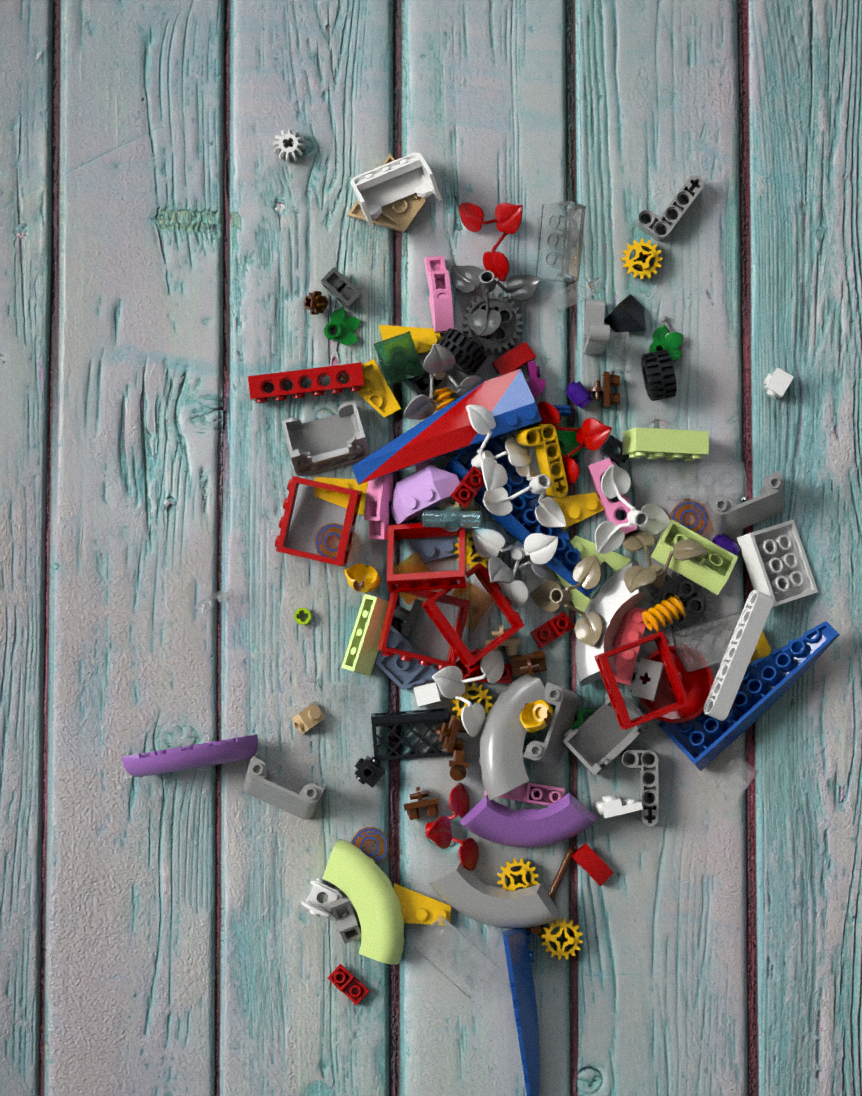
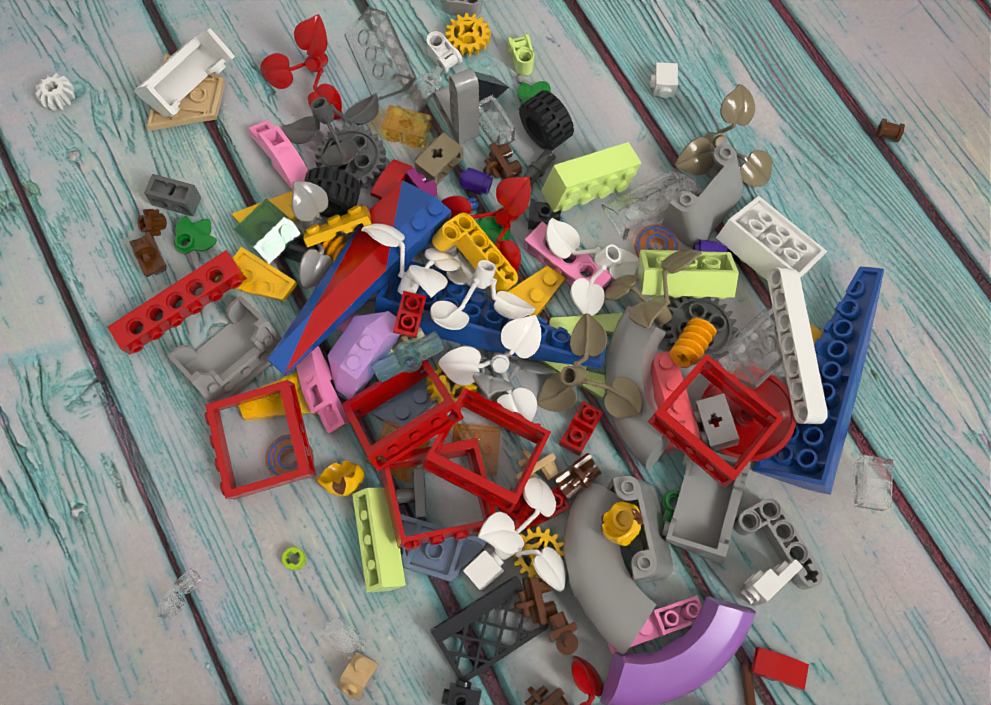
camera: 30 degrees left, 15 degrees down
(302, 329) = (148, 255): none -> reddish brown hips
(458, 388) = (346, 223): none -> yellow wing
(543, 309) = (406, 126): none -> clear yellow brick
(551, 368) = (439, 158): none -> dark tan brick
(612, 267) = (445, 54): none -> white piece
(632, 408) = (537, 168): none -> dark grey pin
(676, 295) = (522, 54): none -> yellowish green piece
(807, 449) = (738, 109): none -> dark tan plant

